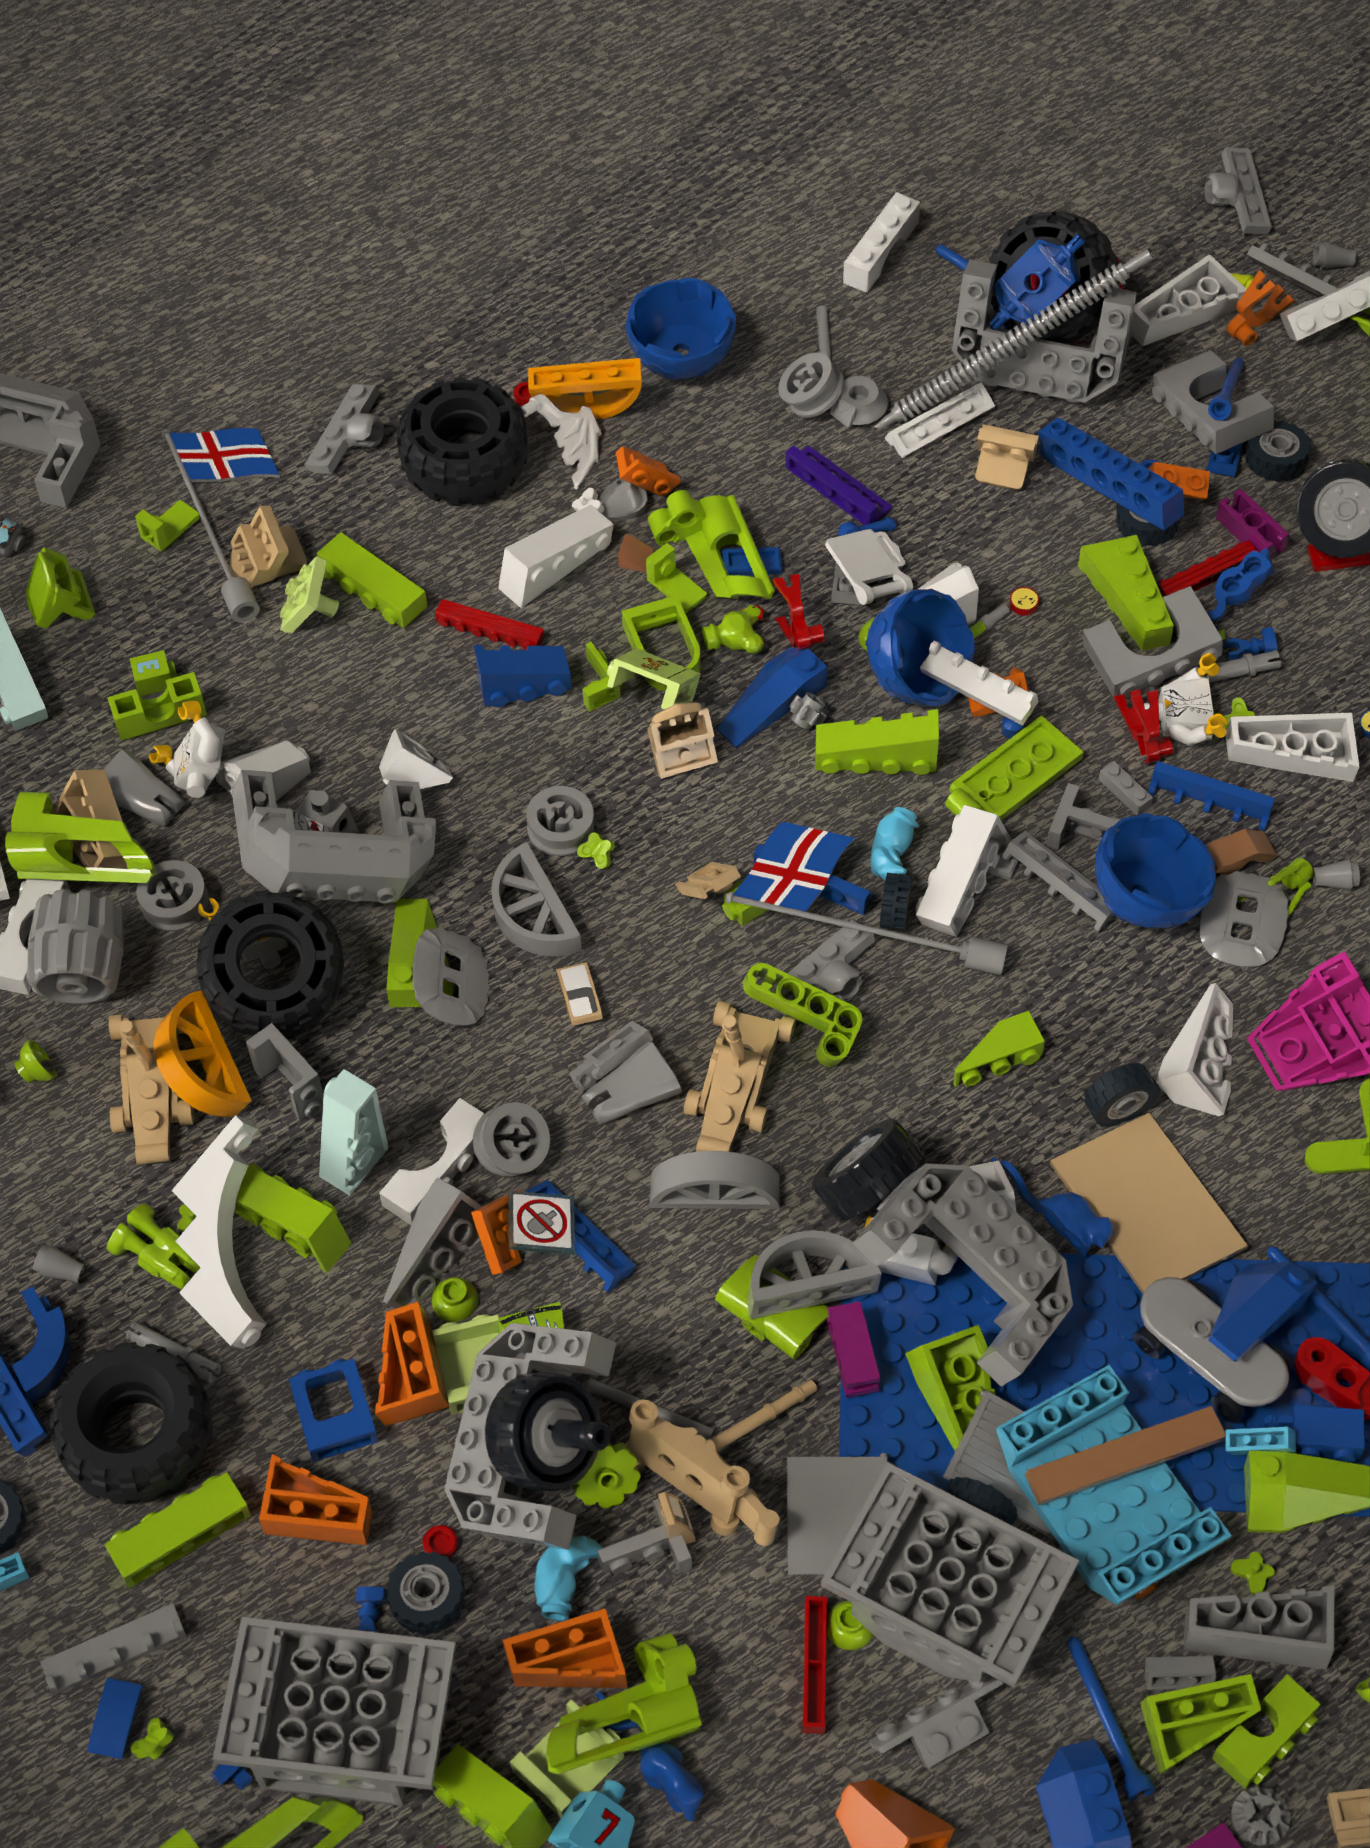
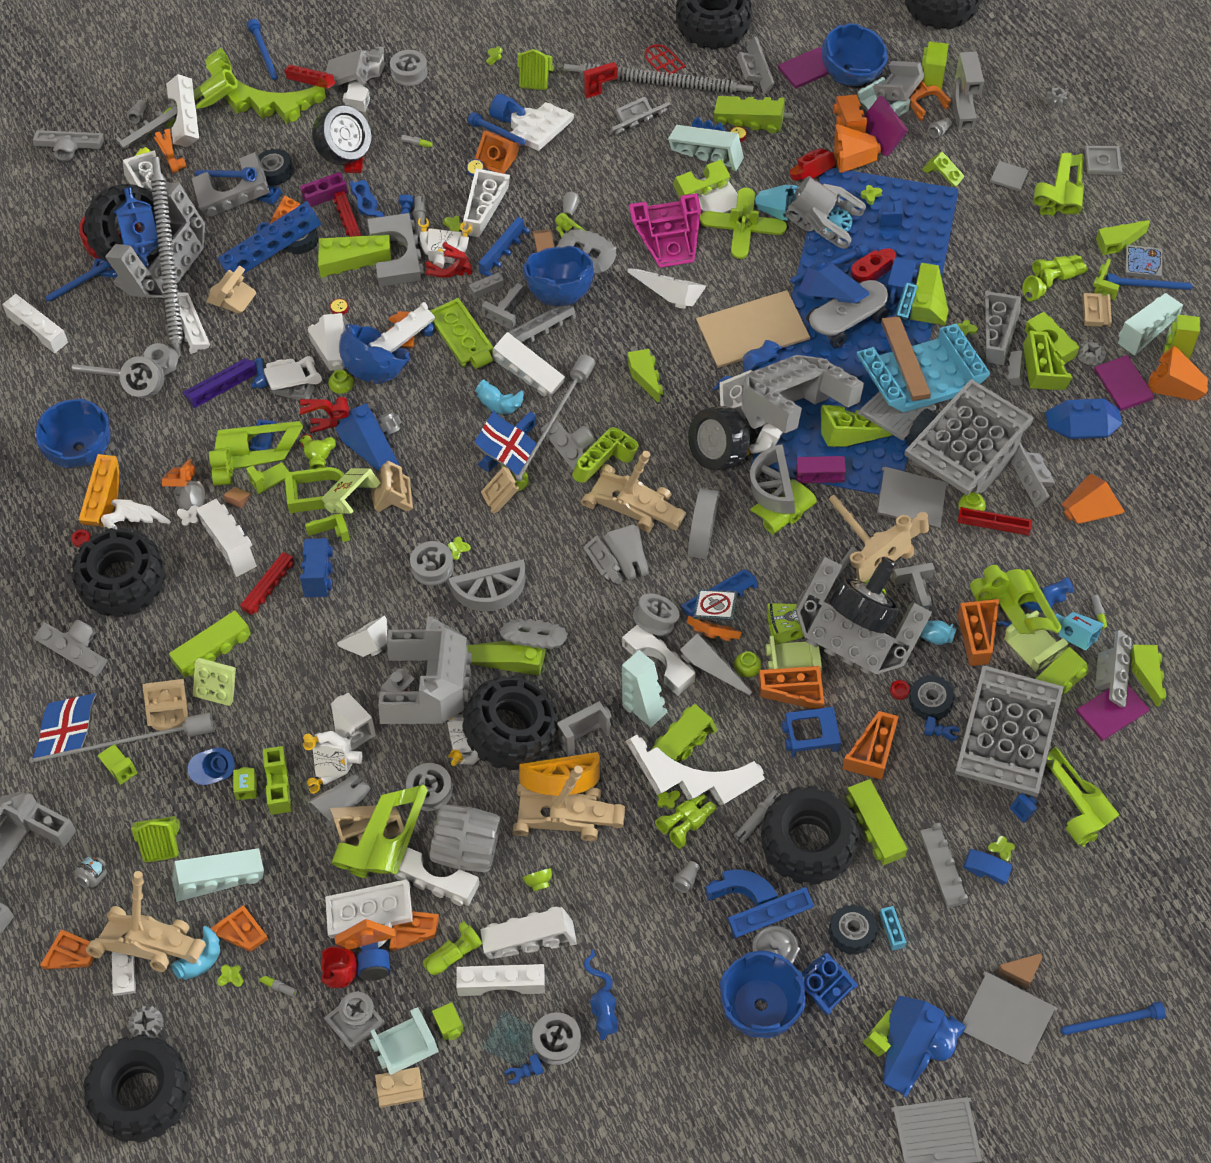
camera: 80 degrees left, 0 degrees up
(172, 627) = (211, 766): none -> blue piece
(579, 994) = (557, 570): slope -> none
(675, 1517) = (909, 565): tan slope -> none
(879, 745) = (427, 390): lime wedge -> none
(895, 901) = (539, 400): black wheel -> none
(1121, 1094) = (691, 320): black wheel -> none
(1135, 1779) = (1070, 395): blue piece -> none

